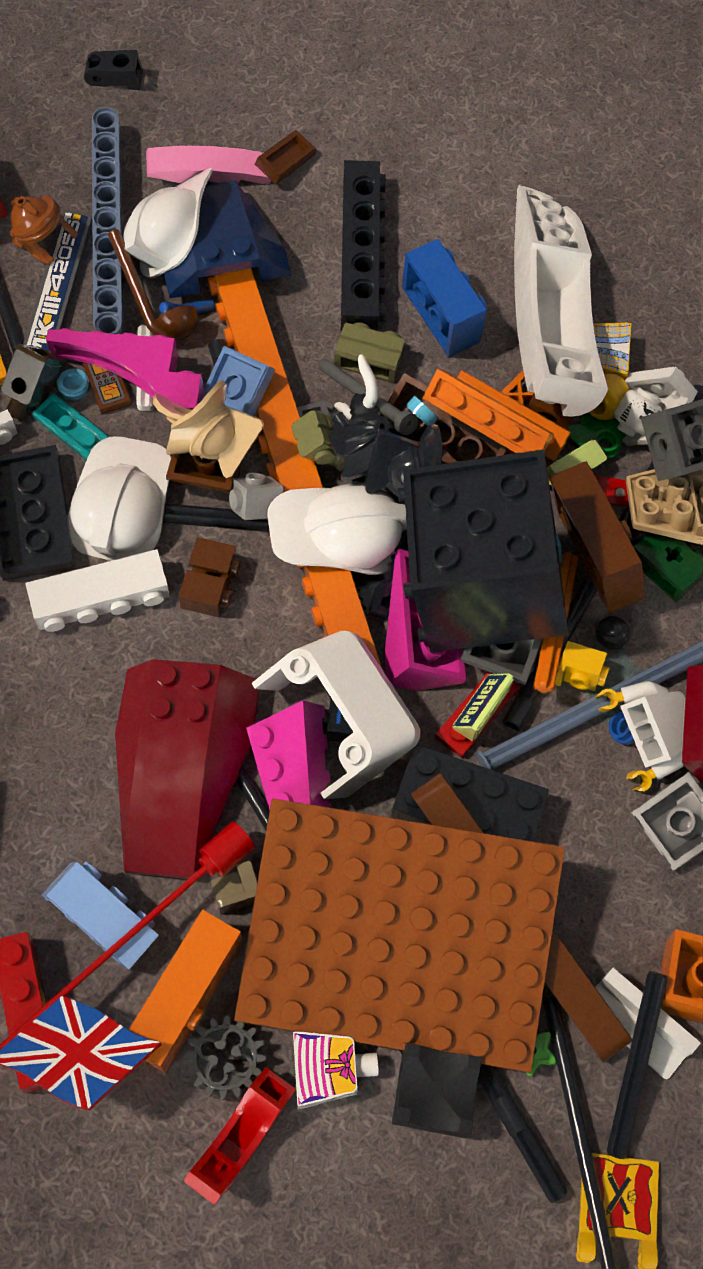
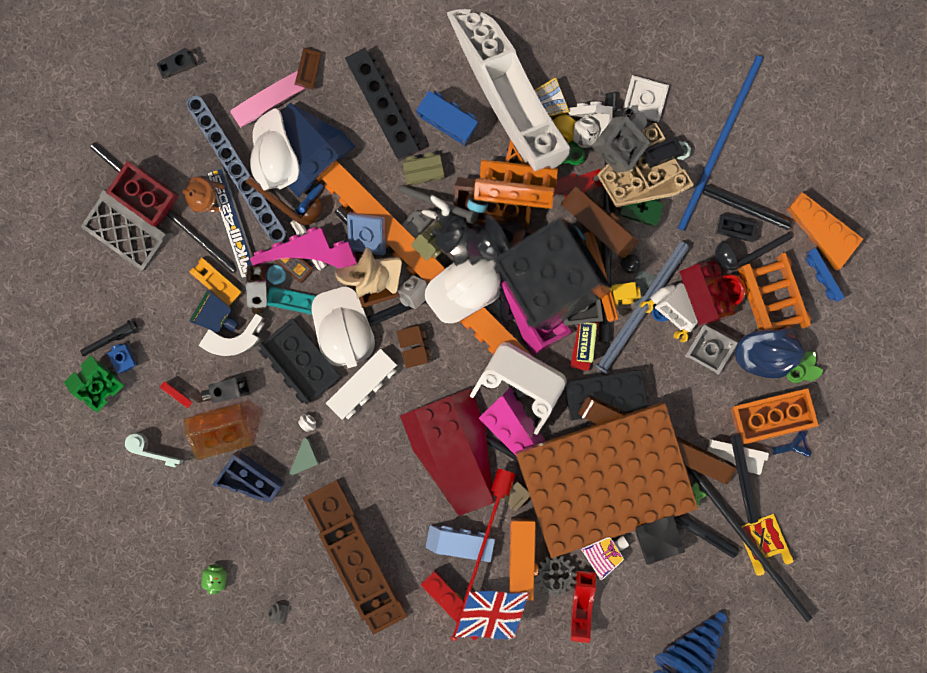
camera: 25 degrees left, 20 degrees up
(588, 452) = (566, 180): yellowish green slope -> none

